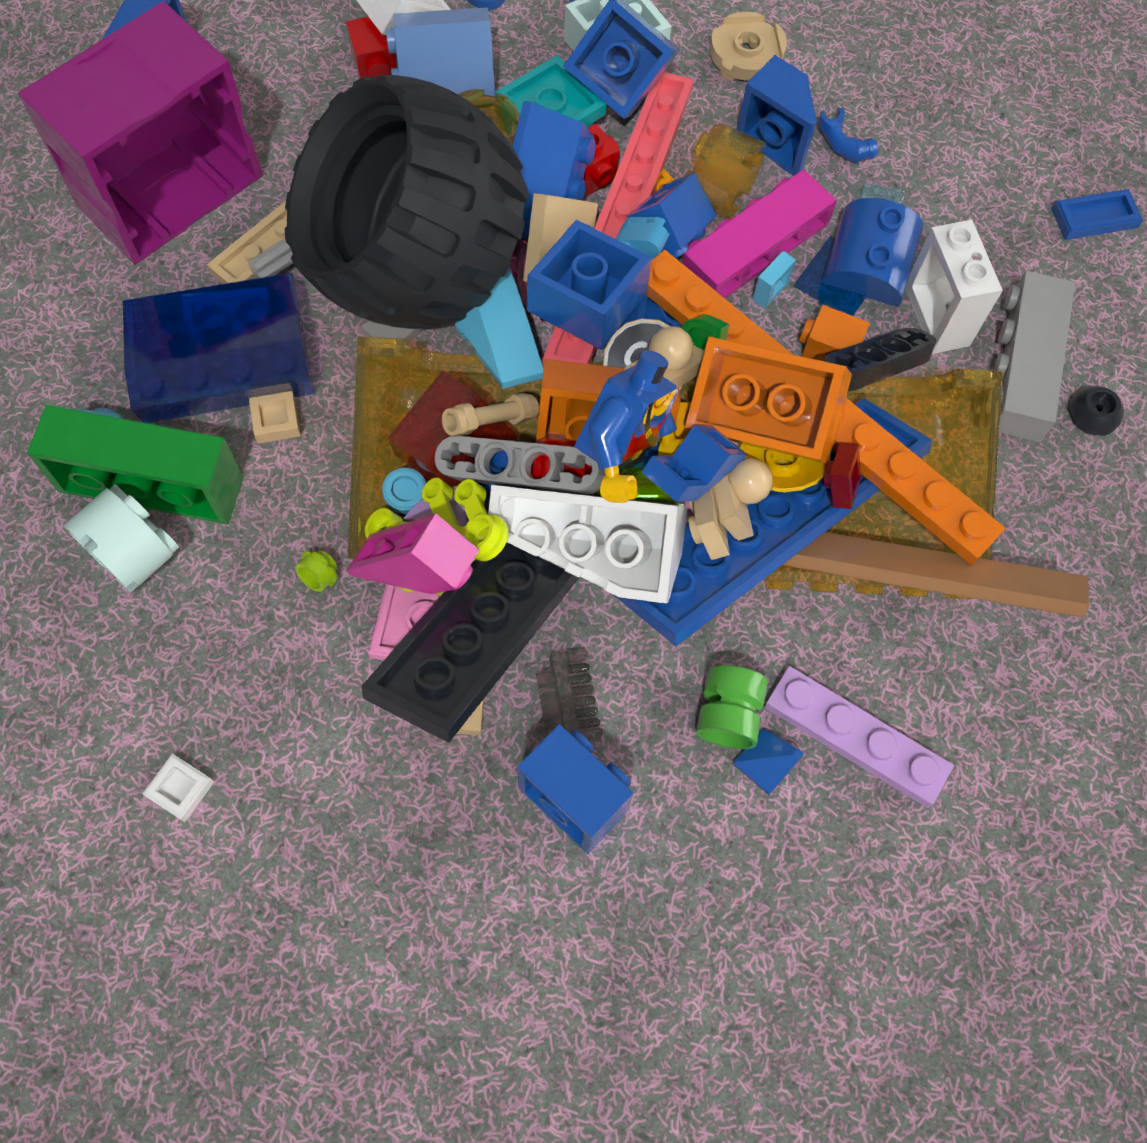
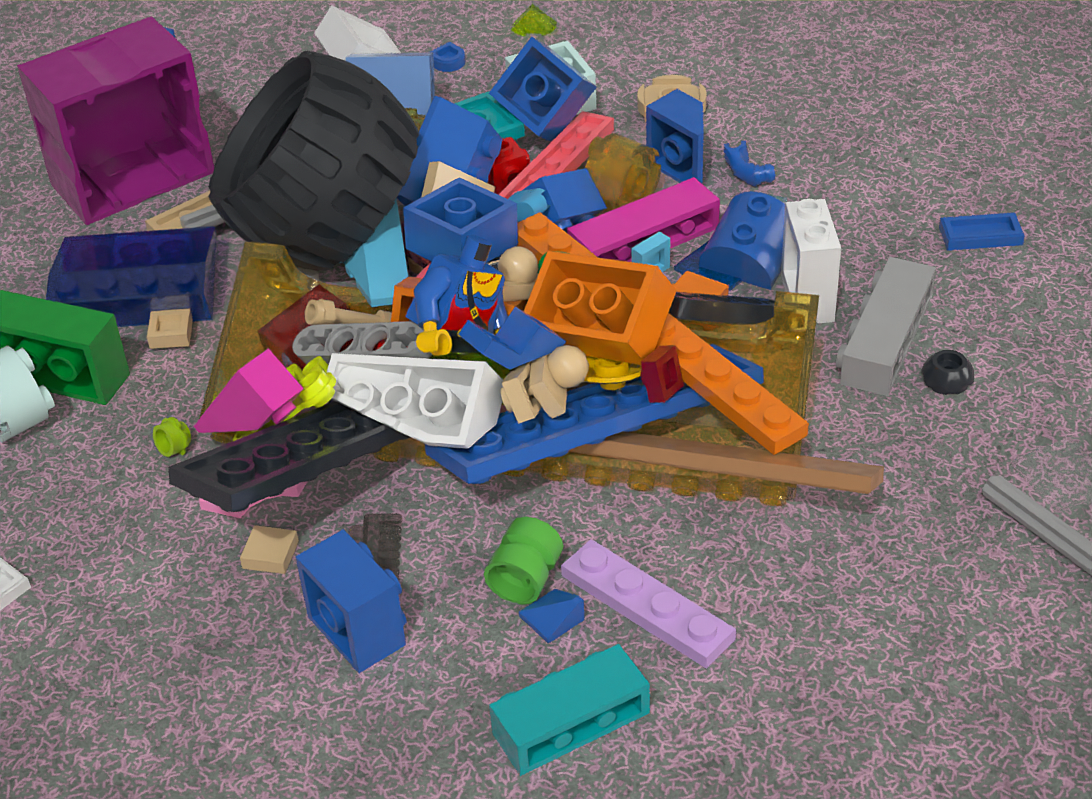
camera: 15 degrees right, 25 degrees down
(815, 886) = (569, 708): none -> teal brick

